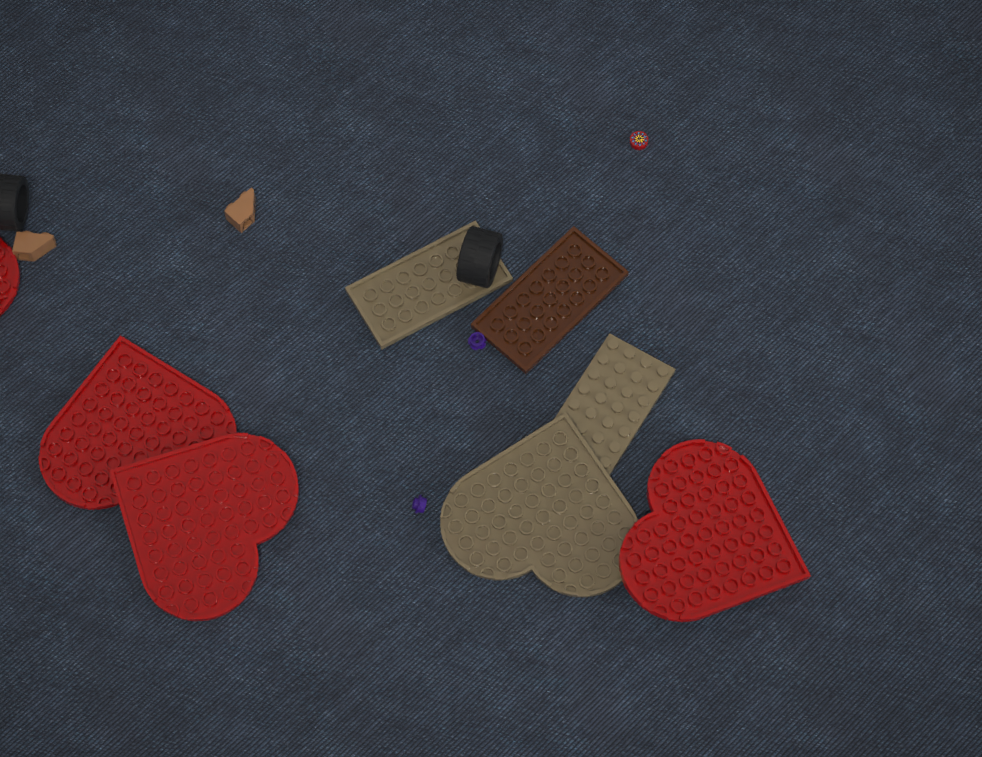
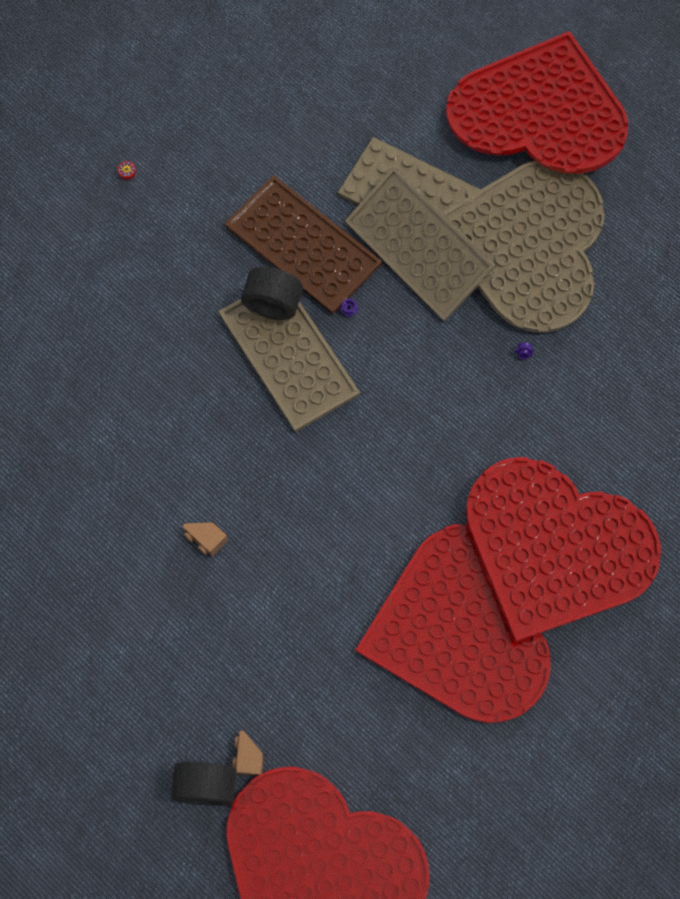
camera: 90 degrees left, 5 degrees up
(540, 403) = (420, 243): none -> dark tan plate

